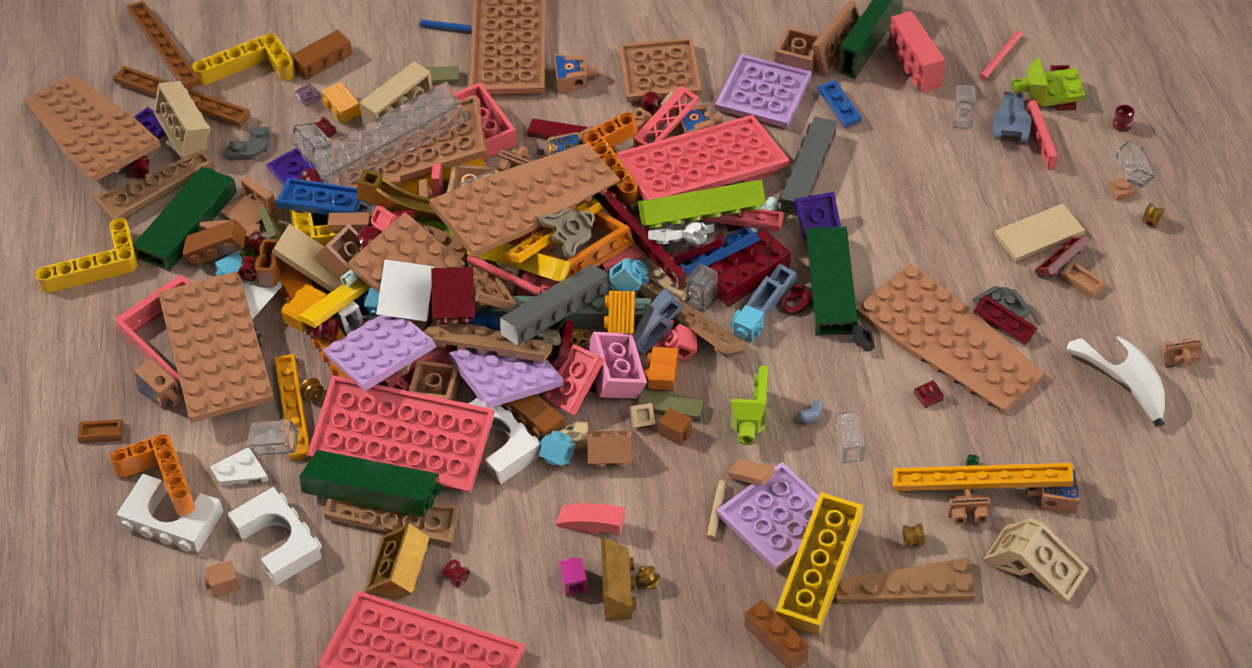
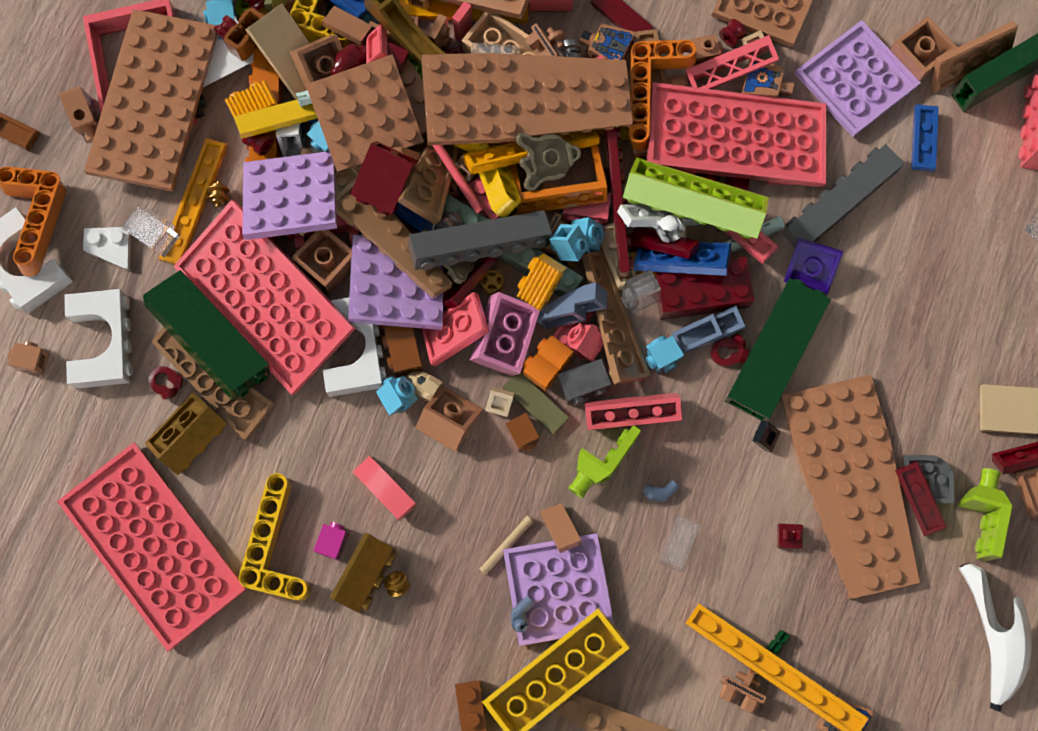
camera: 30 degrees right, 25 degrees up
(363, 533) = (173, 377): none -> dark red piece
(405, 290) = (344, 144): white sticker -> none
(456, 573) = (230, 475): dark red wheel -> none
(518, 606) = (268, 543): none -> yellow beam
(699, 370) = (584, 382): none -> flat silver brick
(744, 371) = (633, 411): none -> coral brick
(760, 541) = (518, 615): none -> sand blue arm
(913, 535) = (669, 688): pearl gold wheel -> none
(1061, 297) = (997, 510): none -> lime plate

